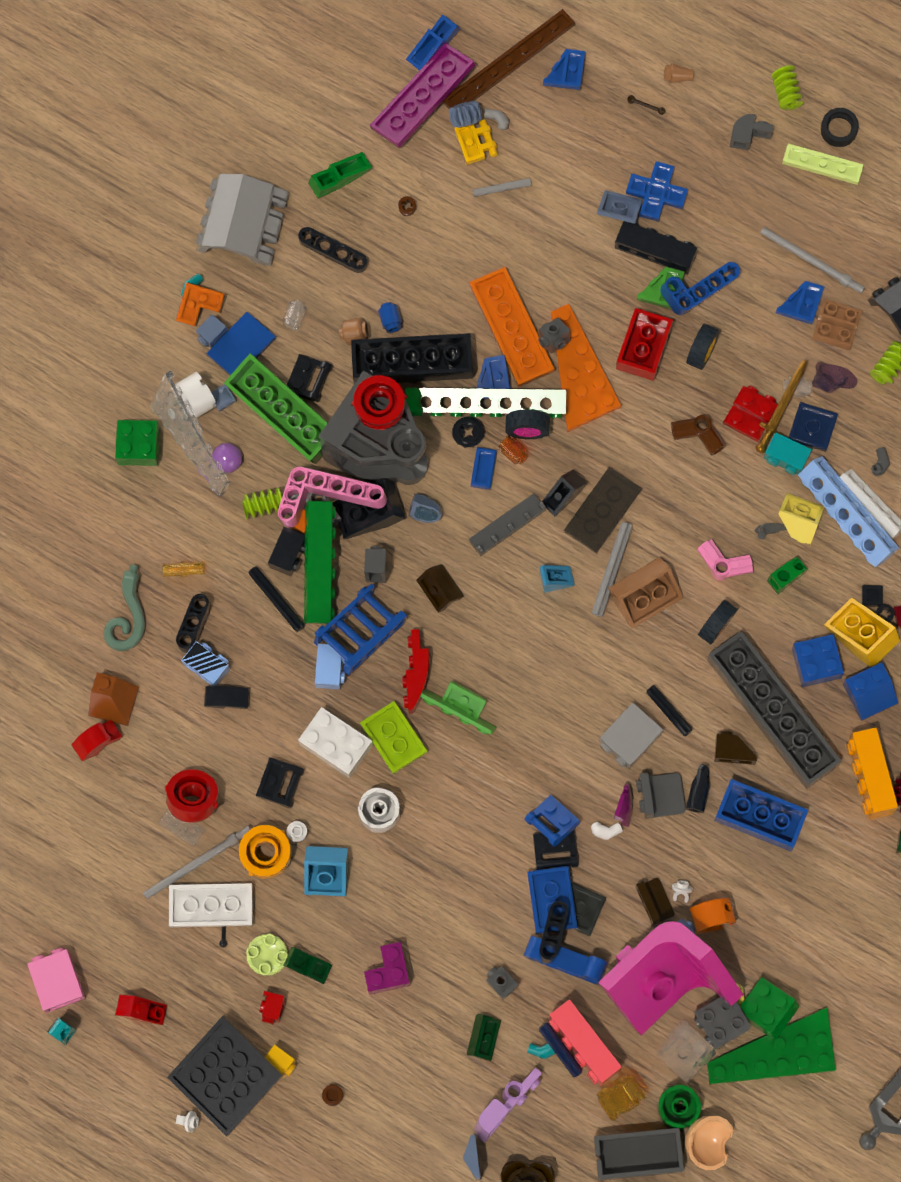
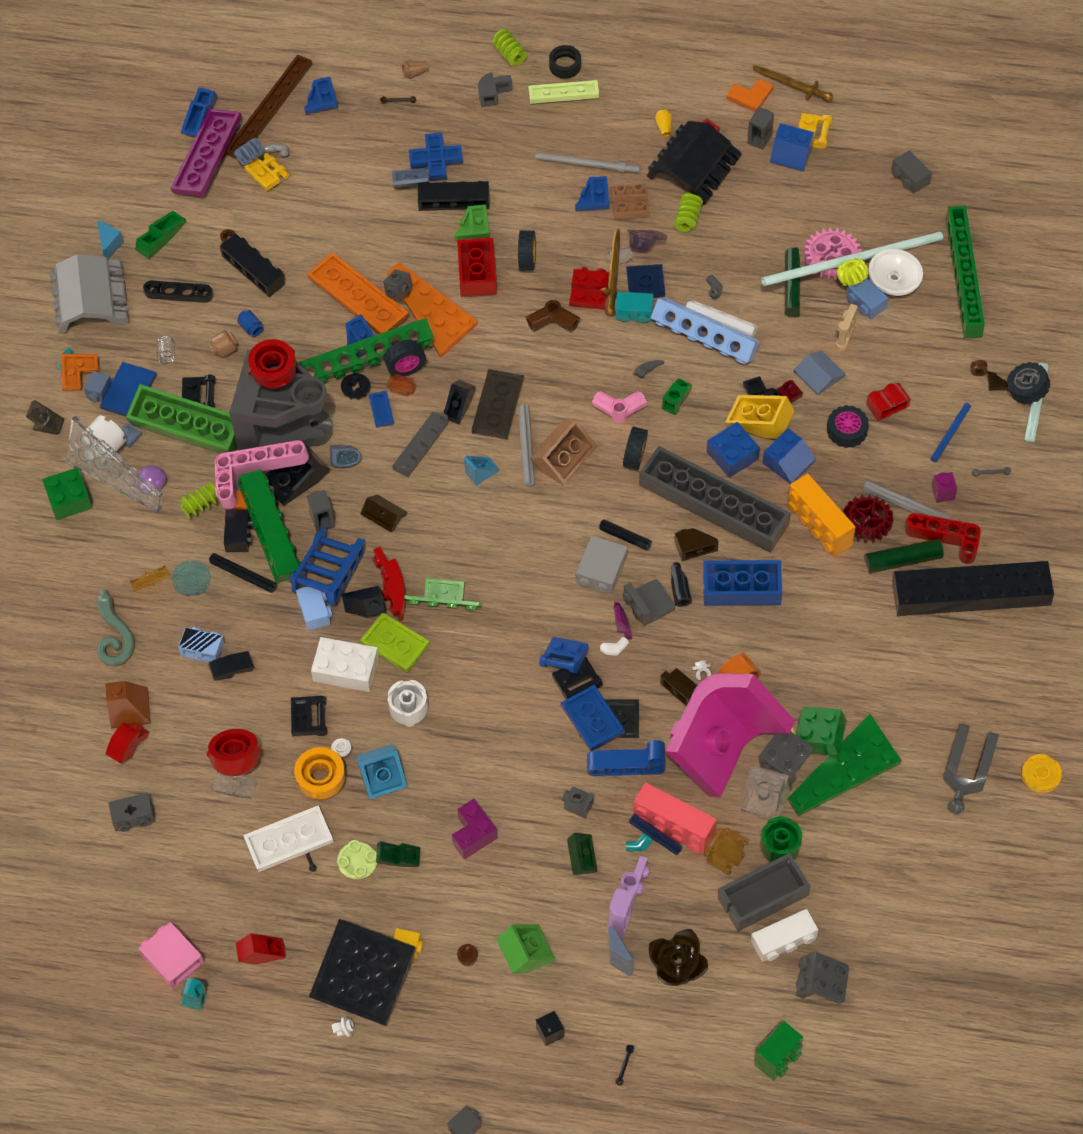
camera: 25 degrees left, 15 degrees down
(64, 809) = (138, 805): none -> dark grey brick
(146, 348) = (44, 418): none -> clear smoke slope
(193, 613) = (176, 608): black beam -> none
(224, 584) = (191, 578): none -> clear light blue tile
(232, 840) = (284, 779): light grey bar -> none
(272, 1007) = (380, 900): red brick -> none
(285, 162) = (110, 239): none -> dark azure slope
(381, 683) = (364, 602): none -> black slope
(389, 1113) = (525, 948): none -> bright green slope
(414, 357) = (306, 334): black brick -> none
(418, 250) = (252, 265): none -> black brick
(501, 187) = (303, 197): light grey bar -> none
(553, 922) = (606, 746): black beam -> none
(704, 287) = (496, 222): blue beam -> none
(707, 1141) = (818, 857): light nougat cylinder -> none
(800, 517) = (669, 350): light yellow slope -> none

